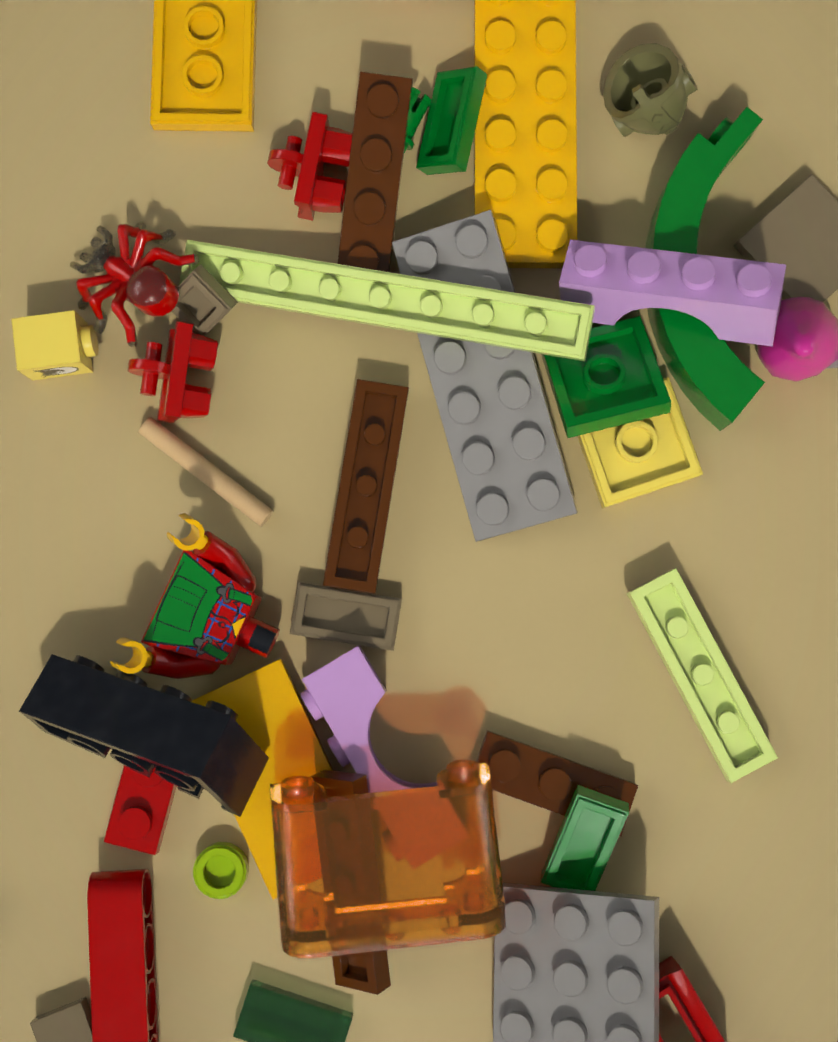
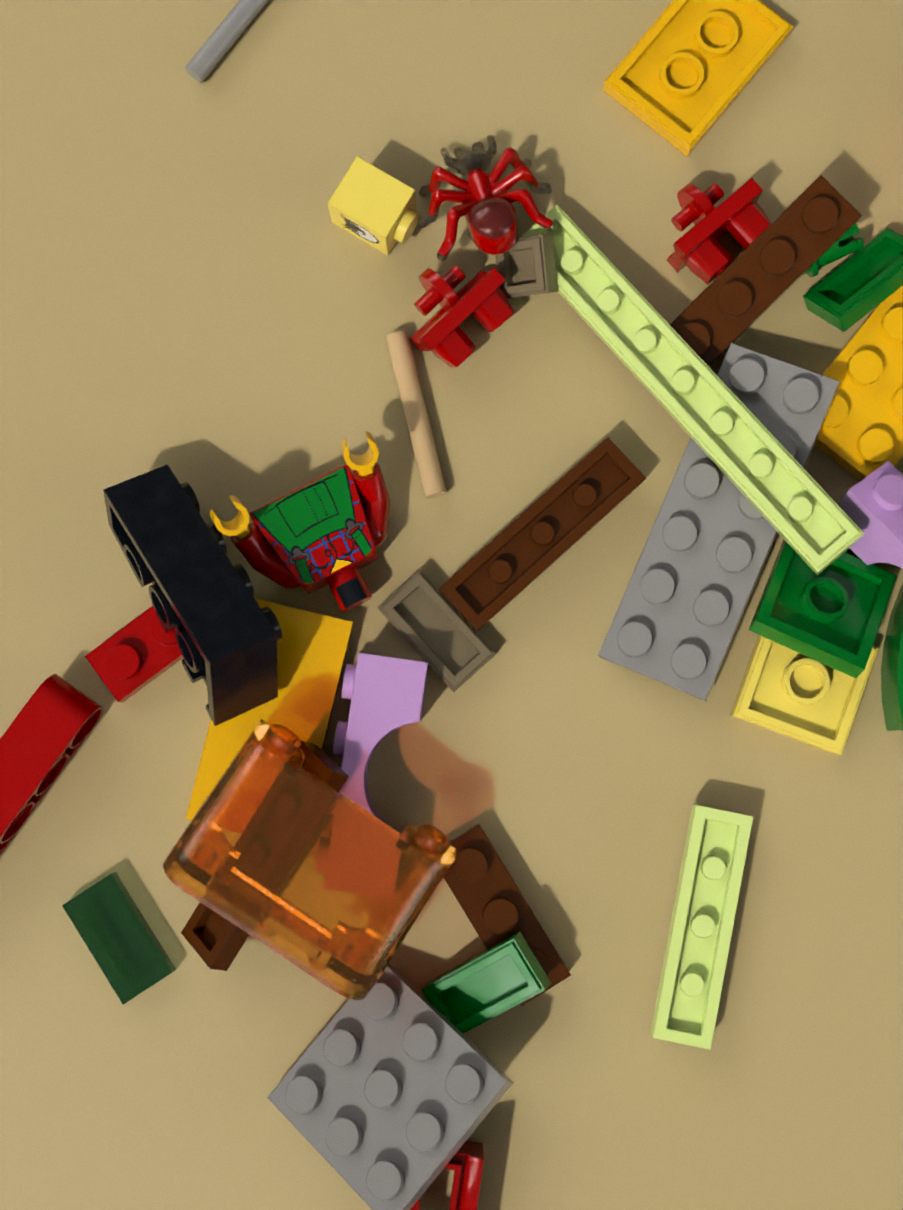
camera: 40 degrees right, 0 degrees up
(220, 870) = (162, 759): lime tile -> none

